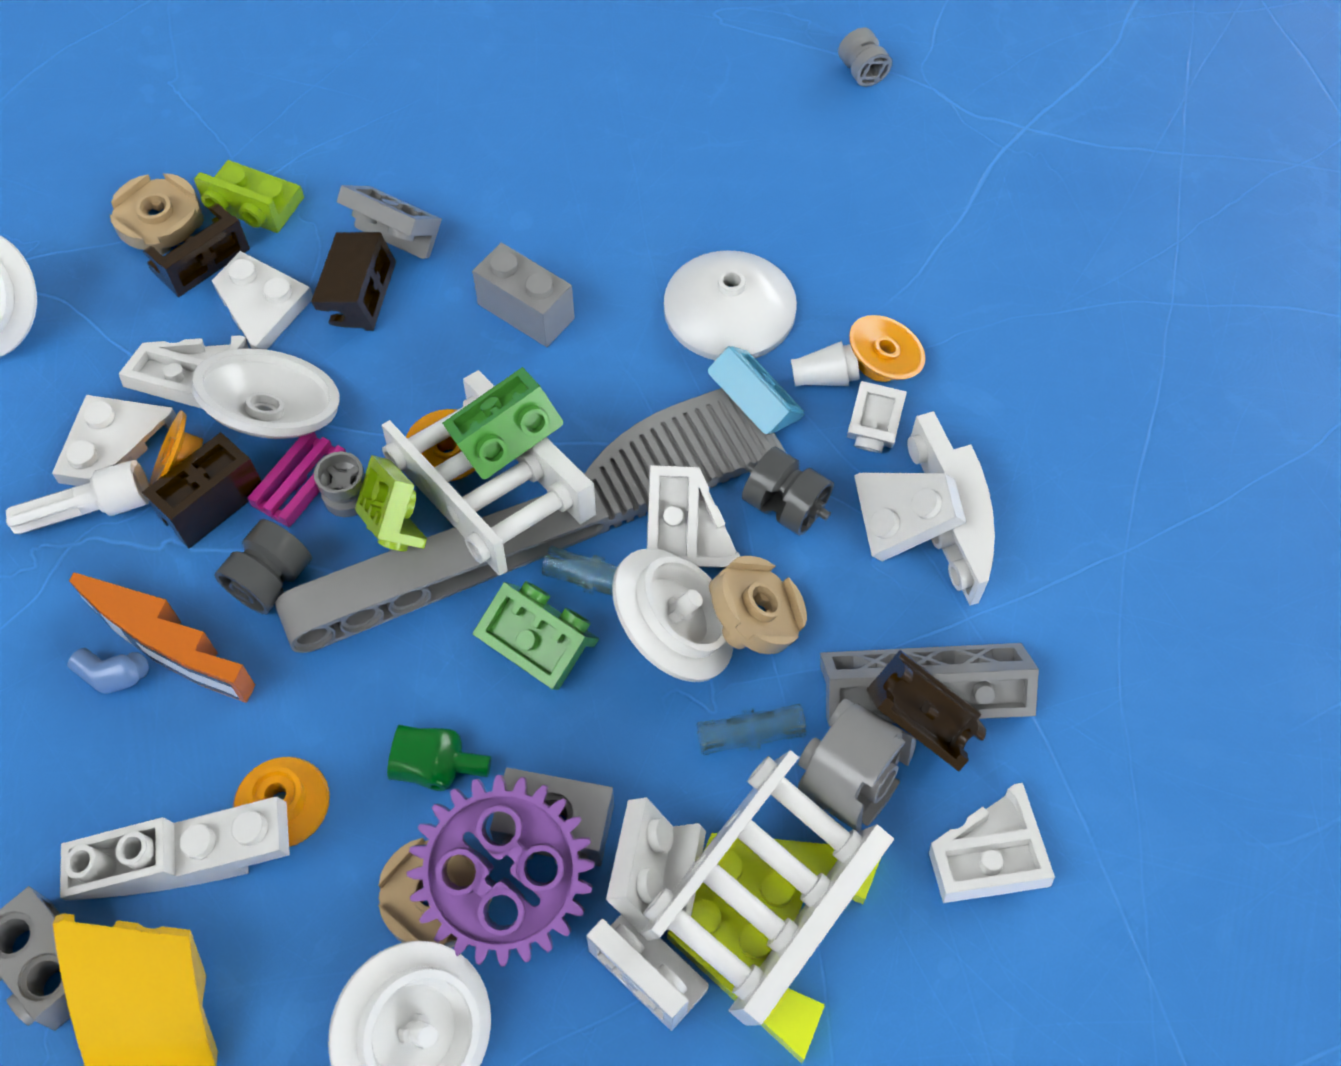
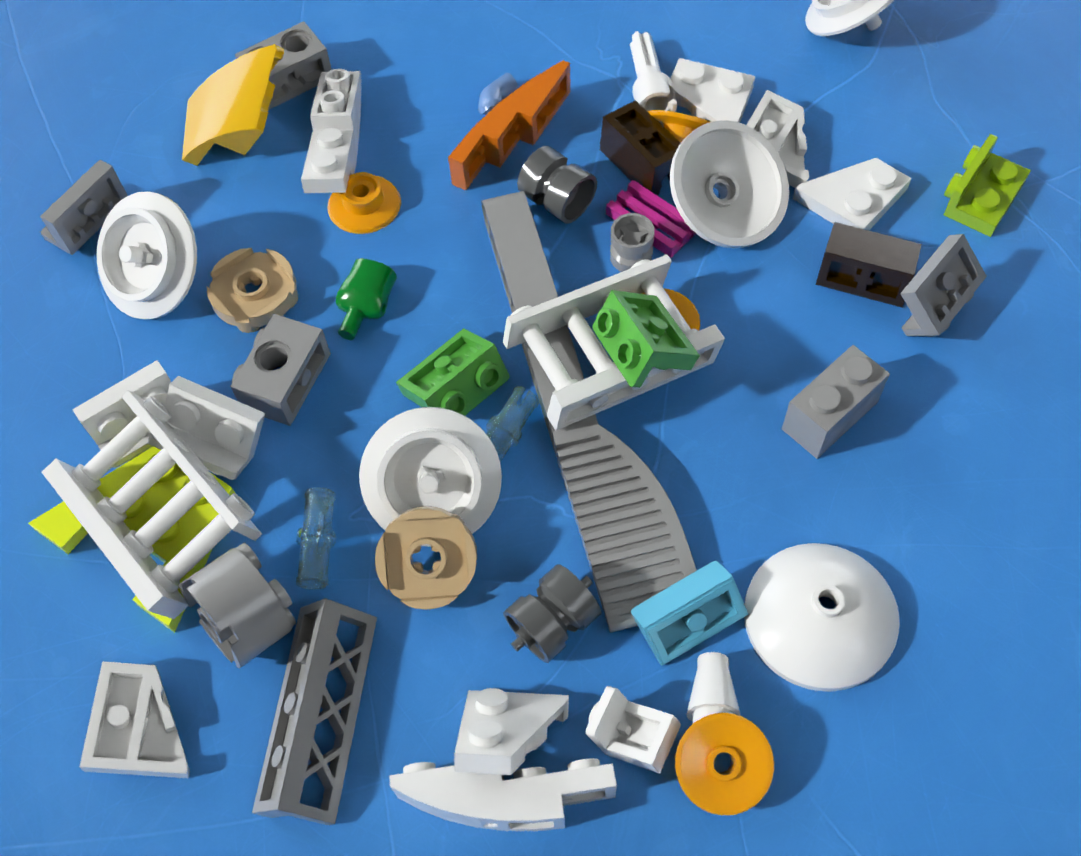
camera: 105 degrees right, 0 degrees up
(163, 230) = (958, 136): tan plate -> none
(199, 254) = (910, 150): dark brown hinge -> none
(387, 505) = (580, 261): lime bracket -> none
(465, 908) = (234, 314): medium lavender gear -> none
(686, 518) = (535, 511): white wing -> none
(926, 709) = (265, 681): dark brown hinge -> none

